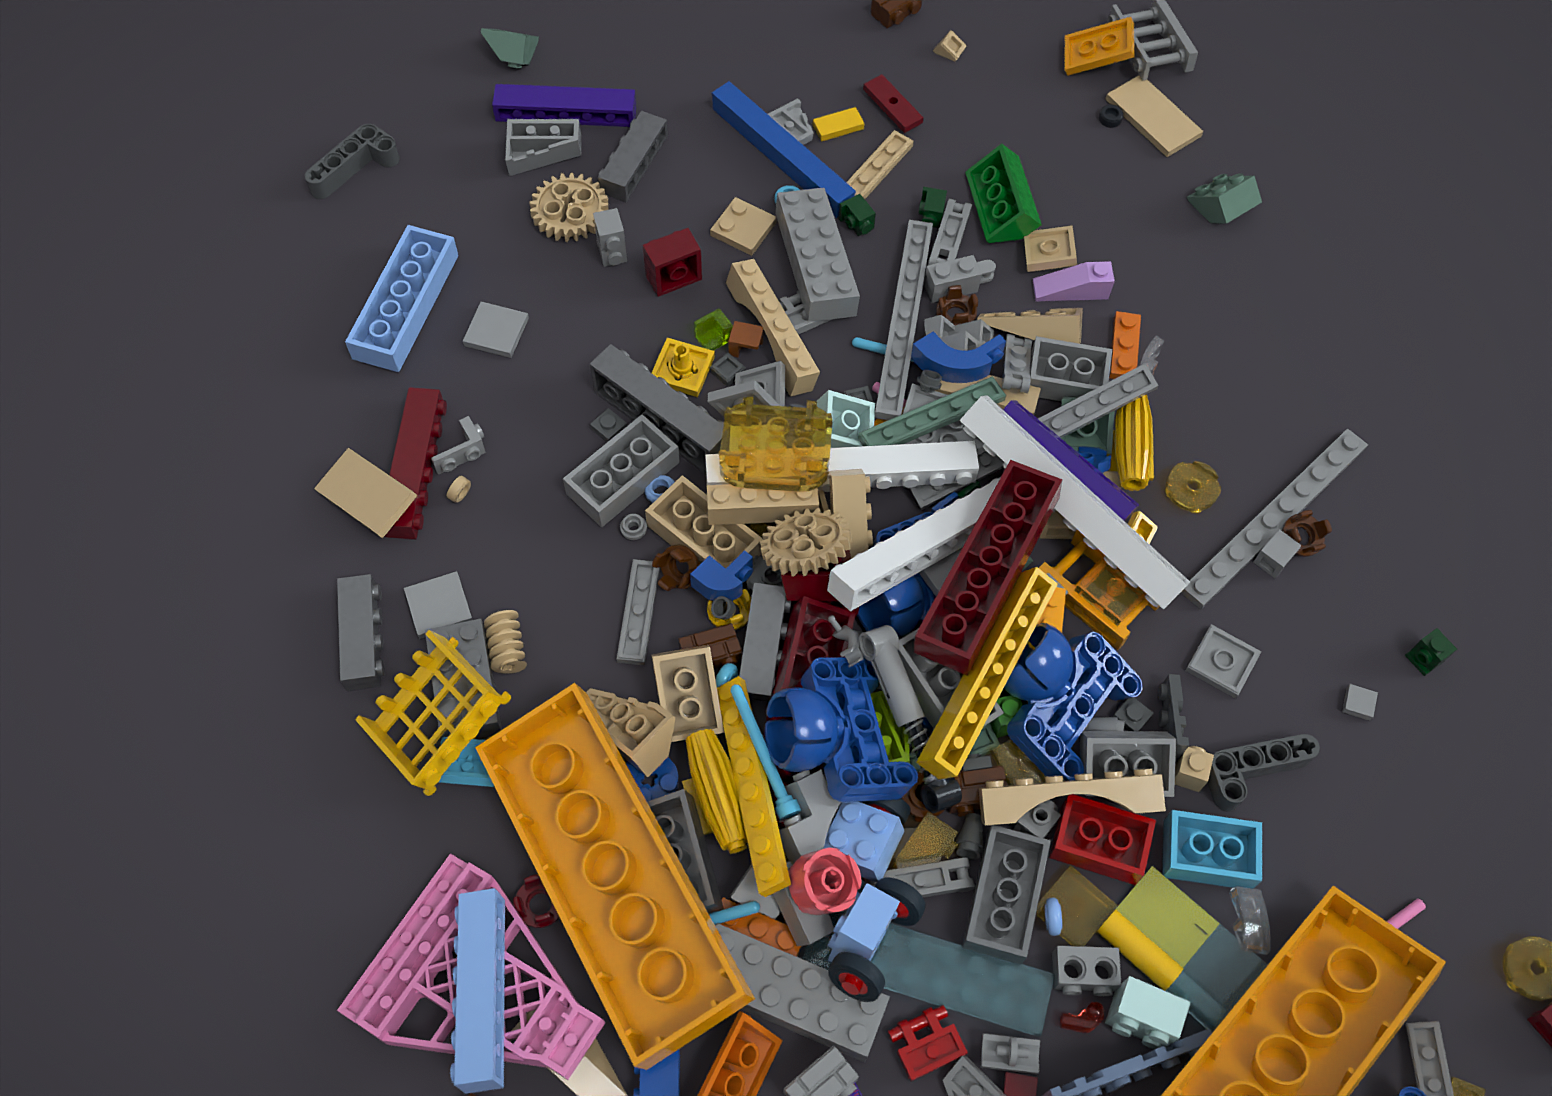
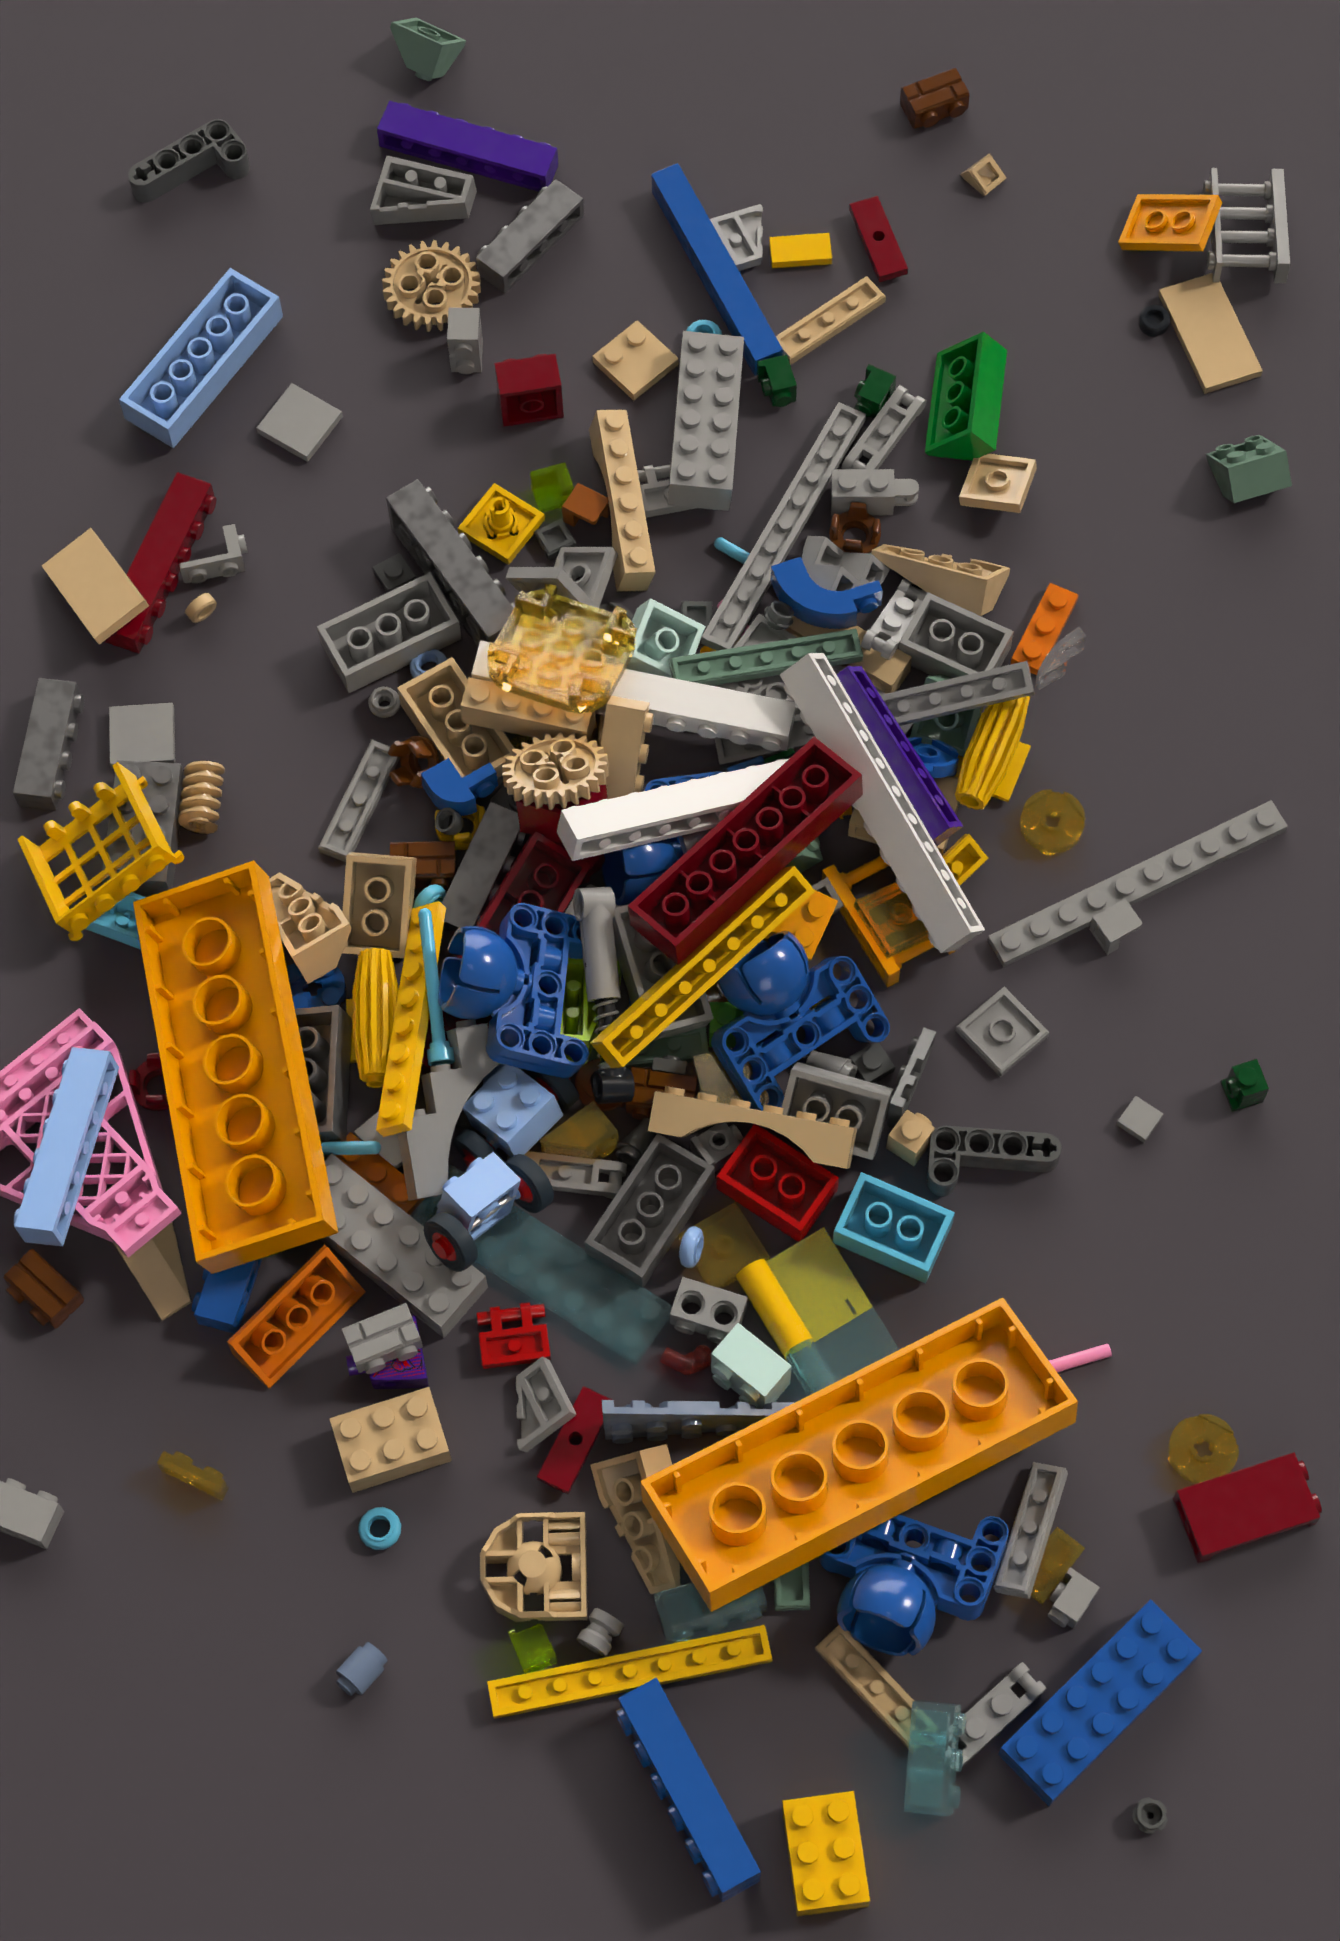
camera: 20 degrees right, 5 degrees up
(824, 881) = (453, 1119): coral brick -> none
(844, 633) = (563, 907): light grey piece -> none
(1010, 1053) = (593, 1369): light grey hips -> none
(1077, 282) = (1013, 534): lavender slope -> none
(1252, 923) = (909, 1313): clear slope -> none
(1316, 531) = (1177, 911): reddish brown piece -> none

